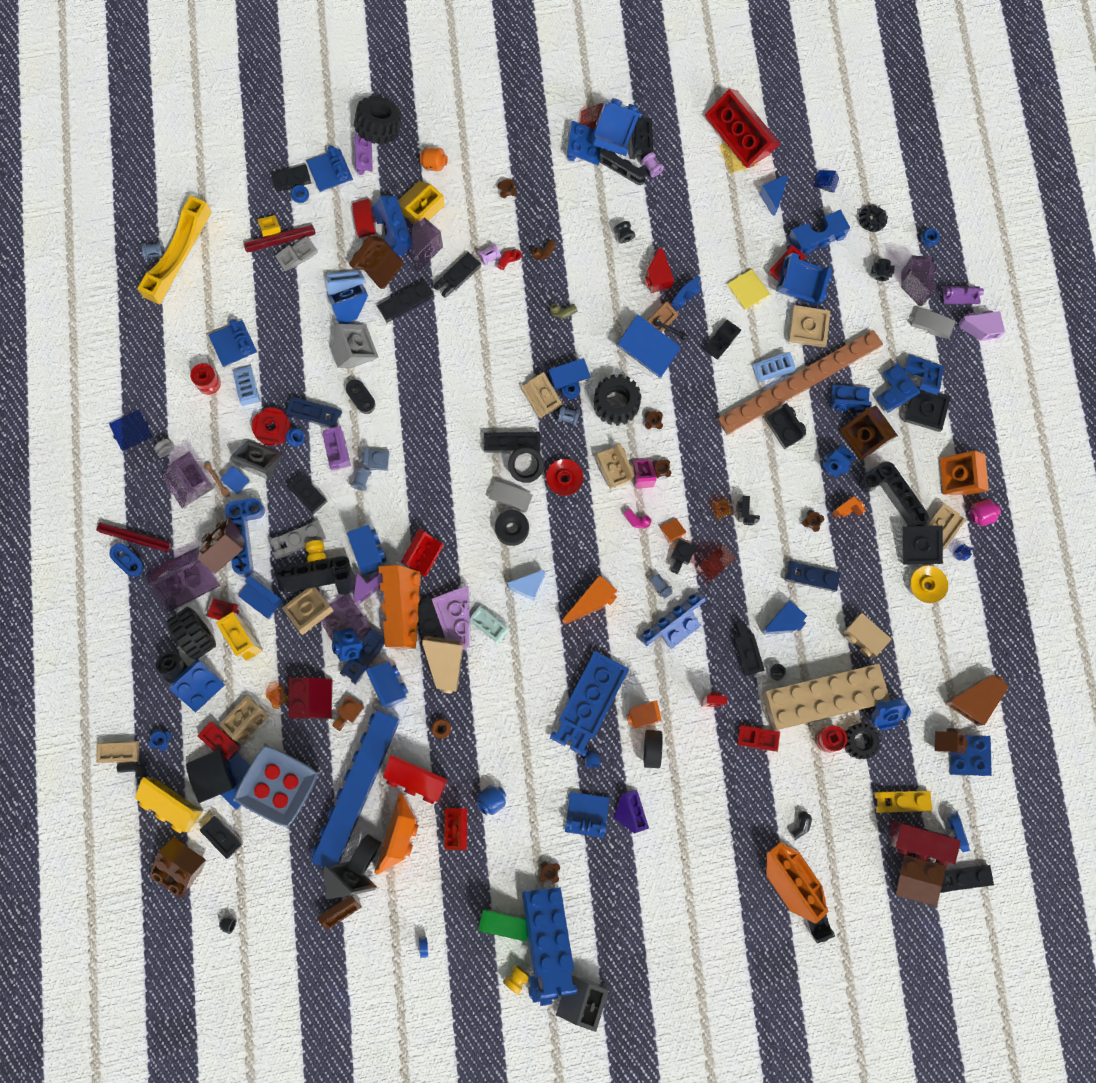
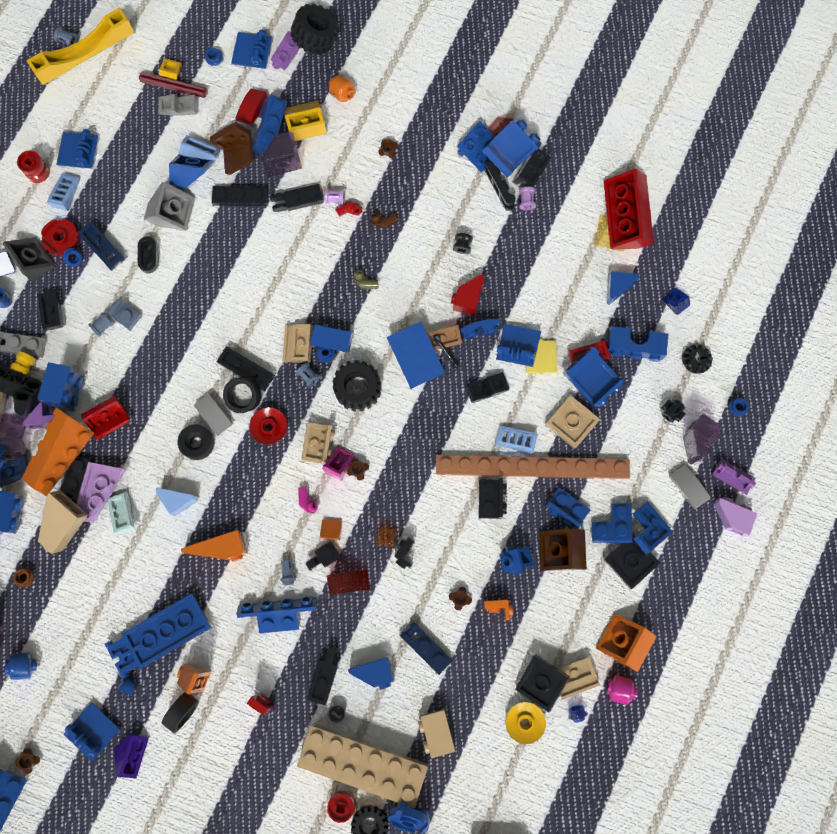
camera: 40 degrees right, 0 degrees up
(291, 177) = (216, 39): black plate -> none
(336, 448) = (100, 287): medium lavender hinge -> none
(653, 415) = (384, 422): reddish brown plate -> none
(725, 289) = (518, 345): none -> blue hinge
(759, 738) = (282, 762): red slope -> none
(896, 497) = (549, 625): black beam -> none

